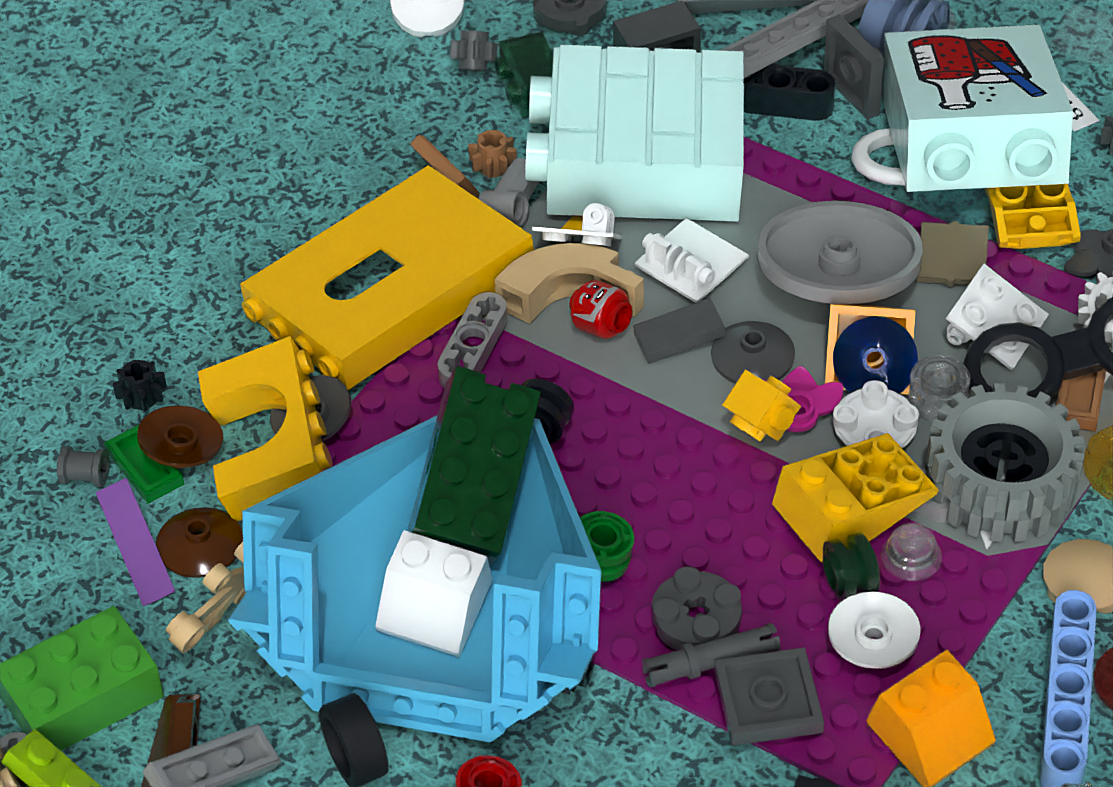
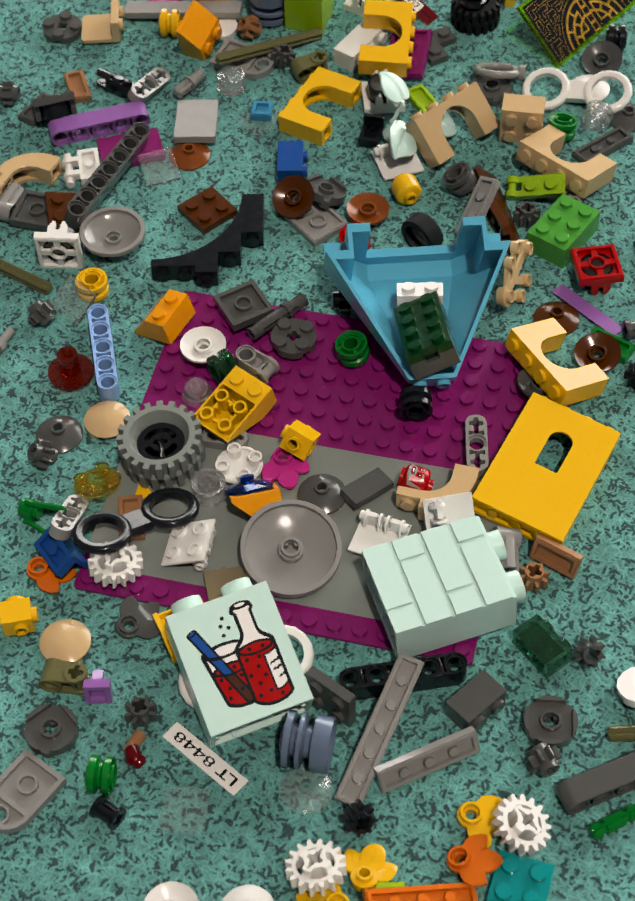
camera: 160 degrees right, 5 degrees up
(71, 579) = (595, 267): none -> red piece
(119, 745) = (526, 214): none -> dark grey gear
(789, 567) = (256, 363): none -> light grey piece

